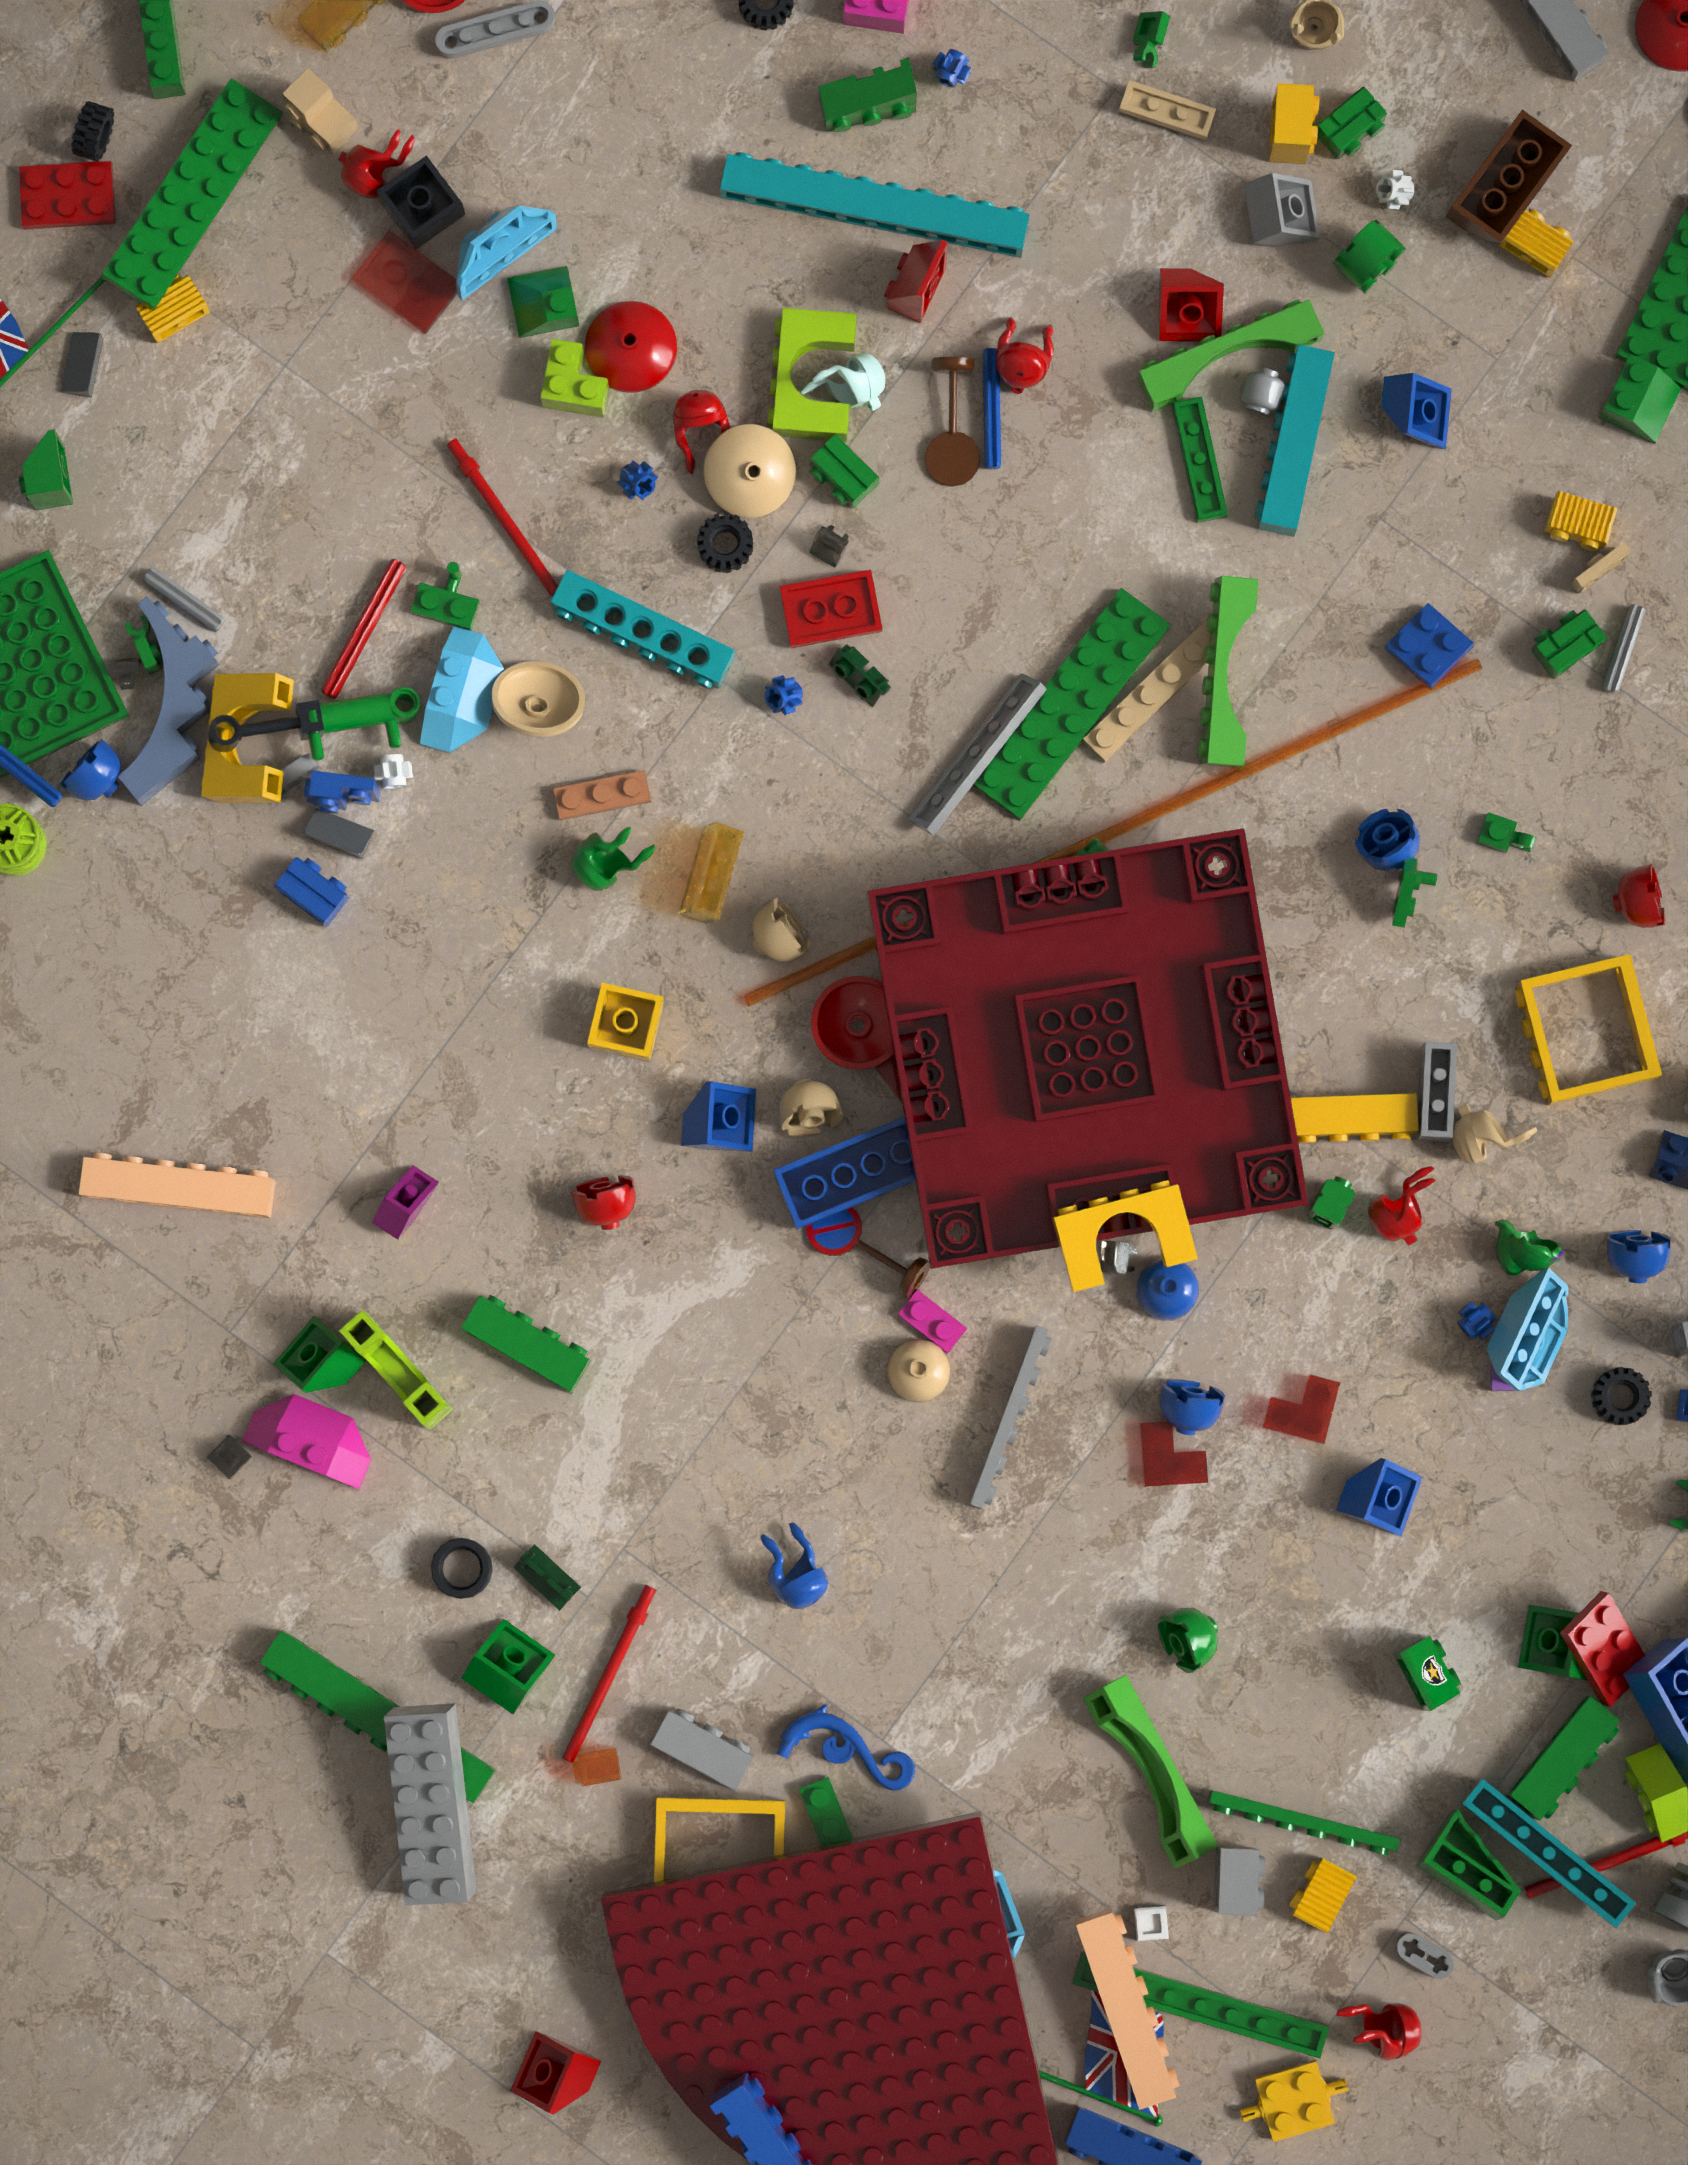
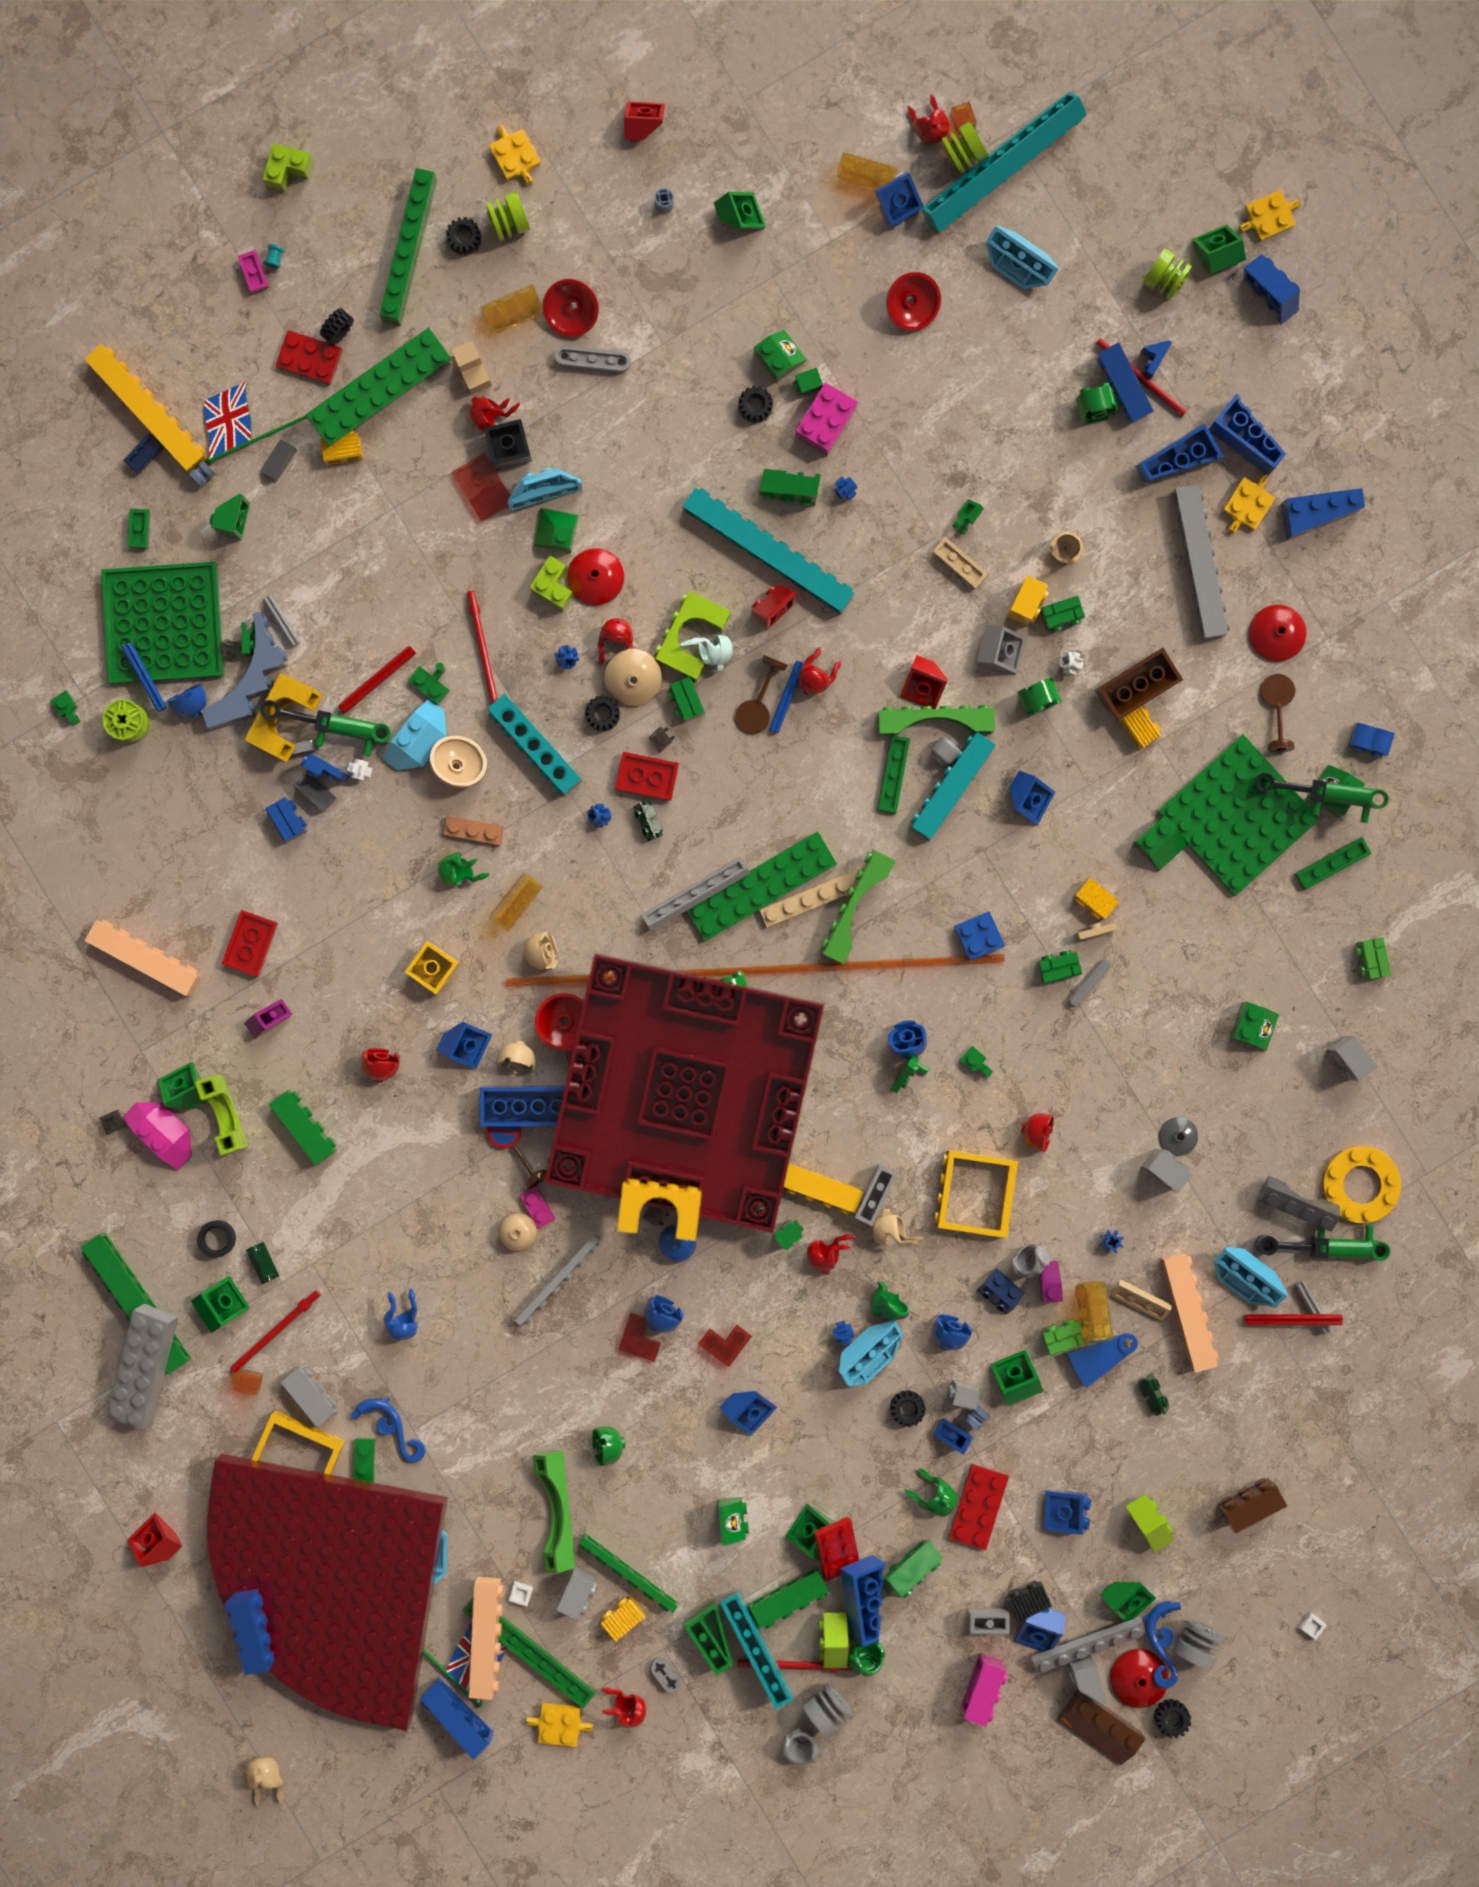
camera: 20 degrees right, 5 degrees up
(331, 1099) = (250, 943): none -> red plate

